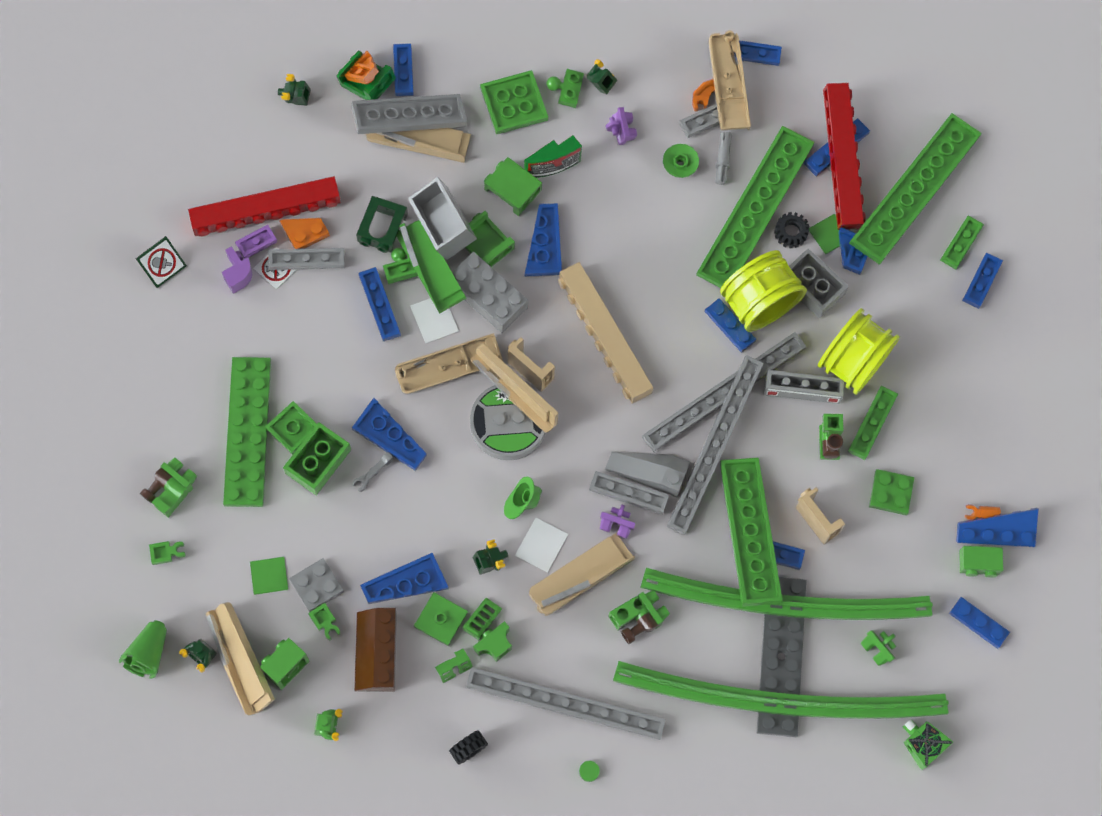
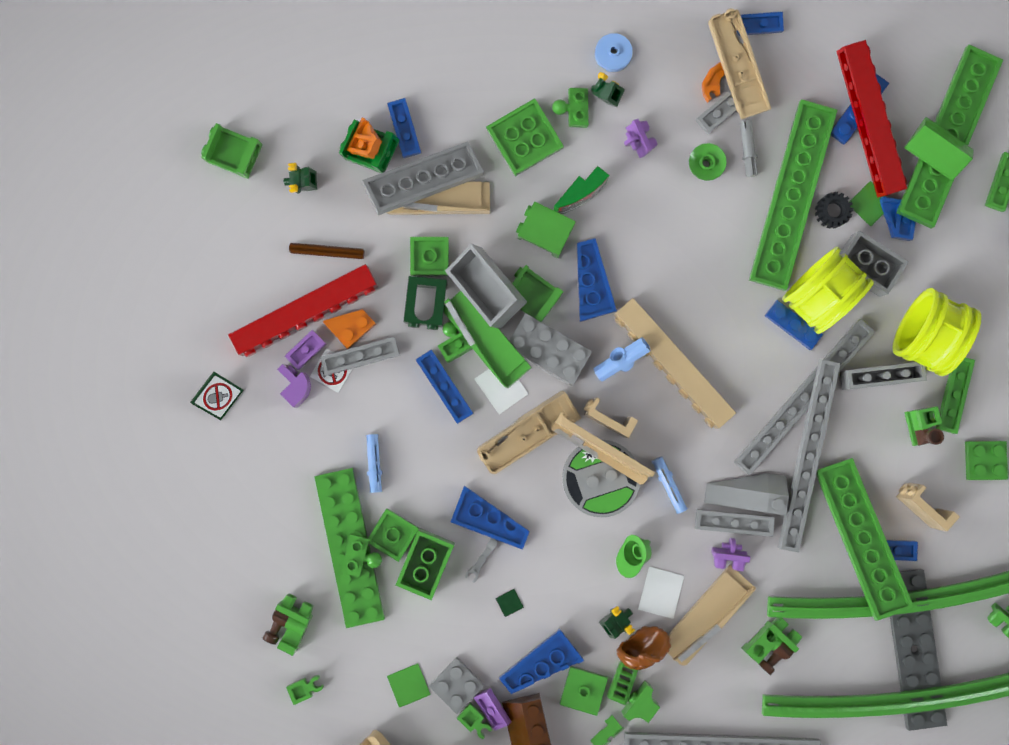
camera: 10 degrees left, 15 degrees up
(236, 54) = (231, 151): none -> bright green panel
(253, 436) = (356, 556): none -> bright green plate
(291, 365) = (374, 463): none -> light blue pin
(301, 160) = (330, 251): none -> reddish brown axle
(345, 613) = (492, 709): none -> medium lavender plate
(389, 520) = (509, 602): none -> dark green sticker
(396, 184) = (429, 256): none -> bright green plate
(508, 587) = (644, 648): none -> dark orange piece
(555, 314) = (622, 359): none -> light blue piece
(568, 420) = (678, 505): none -> light blue pin
(615, 56) = (608, 60): none -> light blue plate
(900, 194) = (939, 149): none -> bright green slope

